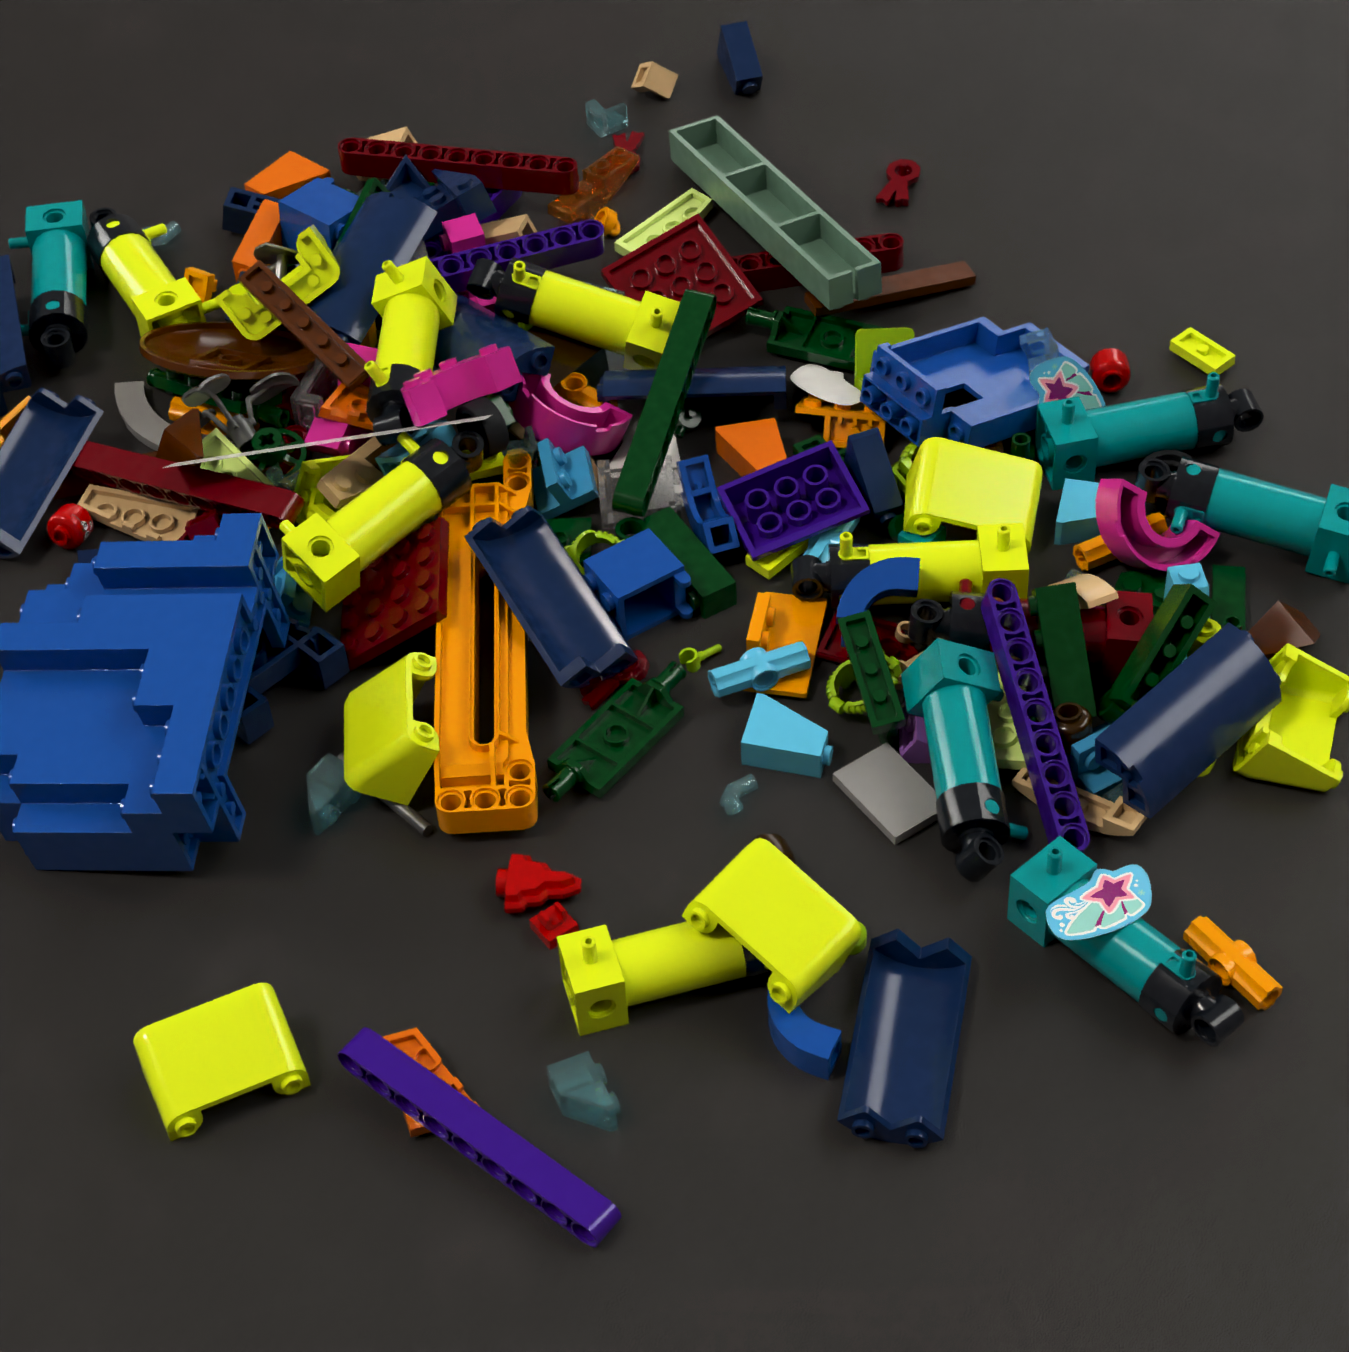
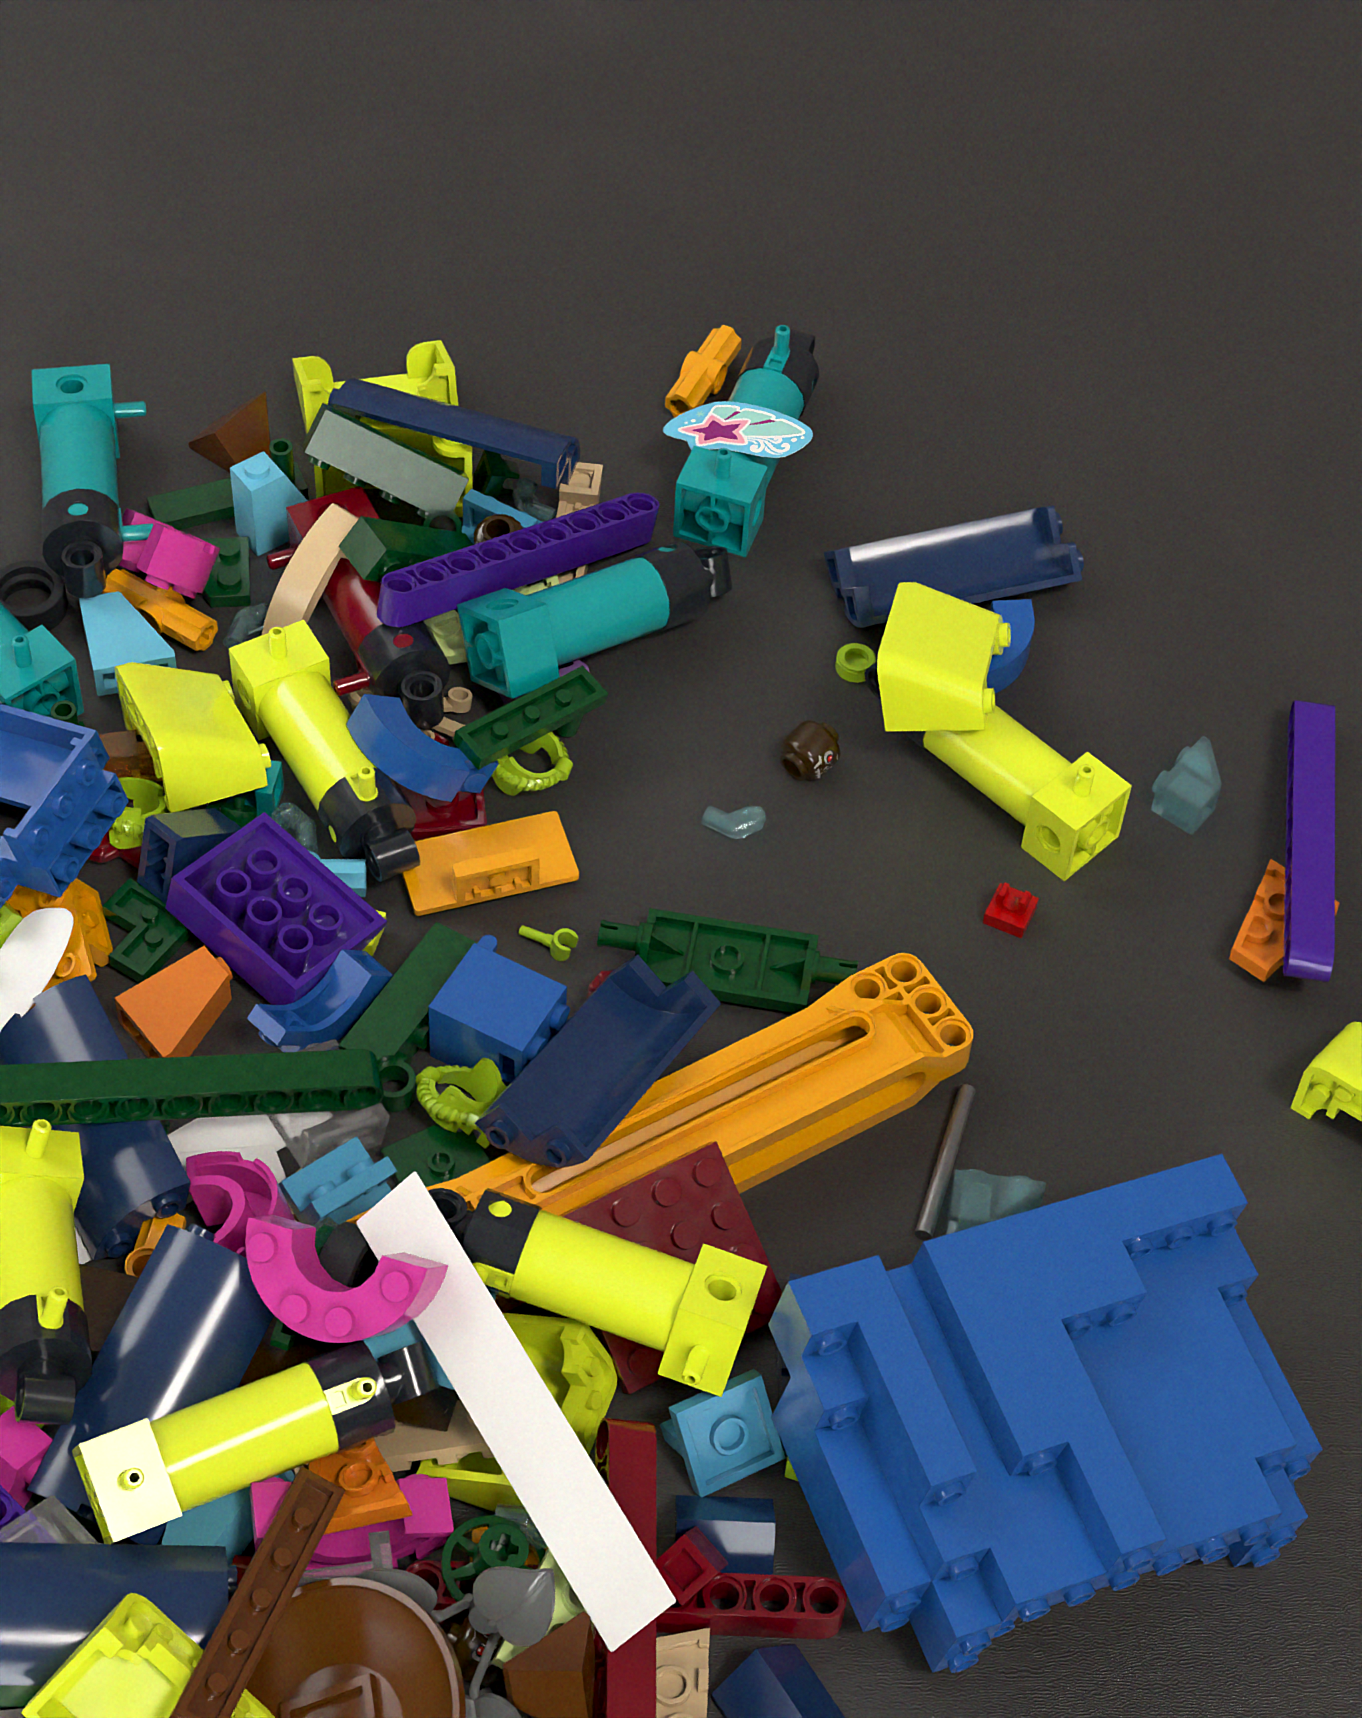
camera: 125 degrees left, 5 degrees up
(382, 743) = (886, 1150): neon yellow windscreen -> none
(532, 884) = (978, 948): red rock -> none
(759, 669) = (560, 850): medium azure piece -> none
(784, 740) = (640, 804): medium azure slope -> none
(889, 792) = (649, 693): light grey tile -> none

